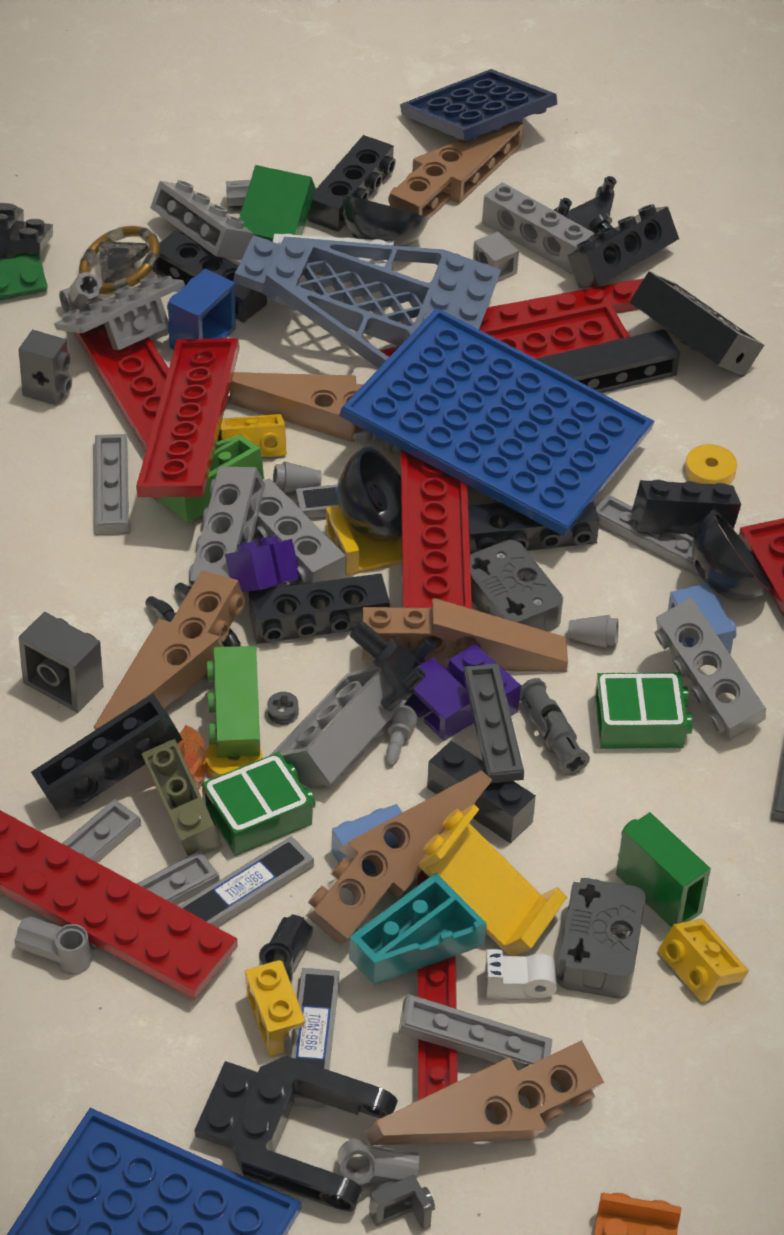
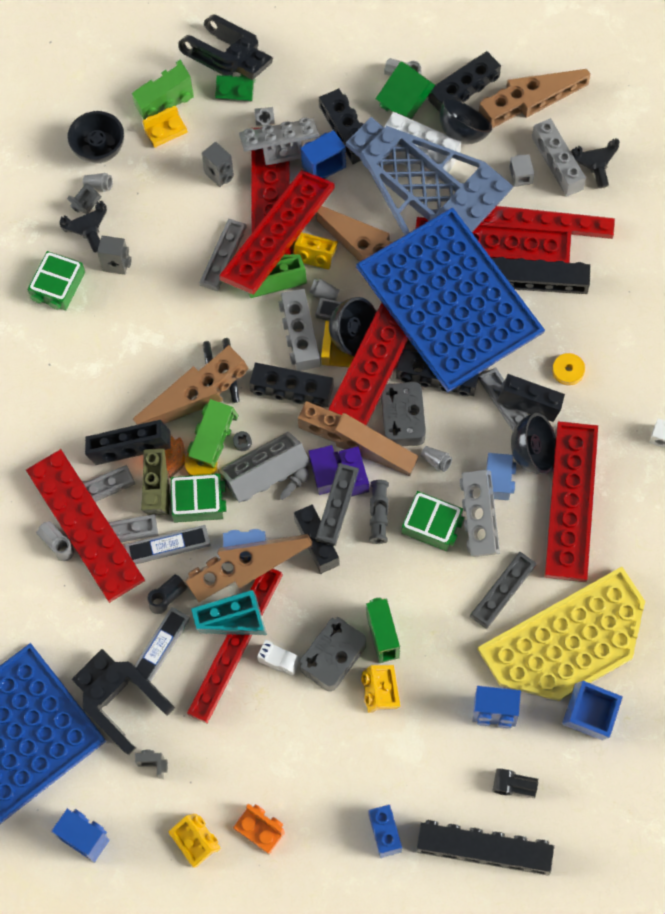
camera: 30 degrees right, 20 degrees up
(61, 661) = (135, 370): dark grey brick -> none
(120, 258) = (298, 98): piece -> none
(201, 219) = (357, 85): light grey brick -> none
(232, 510) = (262, 328): light grey brick -> none
(263, 565) = (265, 347): dark purple piece -> none
(273, 1004) = (142, 624): yellow bracket -> none
(381, 1165) = (144, 733): light grey piece -> none
(395, 661) = (304, 444): black axle -> none
(459, 1109) = (200, 727): medium nougat brick -> none
(471, 1033) = (235, 686): light grey tile -> none
(479, 105) = (571, 49): dark blue plate -> none
(489, 884) = (285, 602): yellow panel -> none
(622, 246) = (611, 194): black brick -> none
(696, 323) = (610, 268): black brick -> none

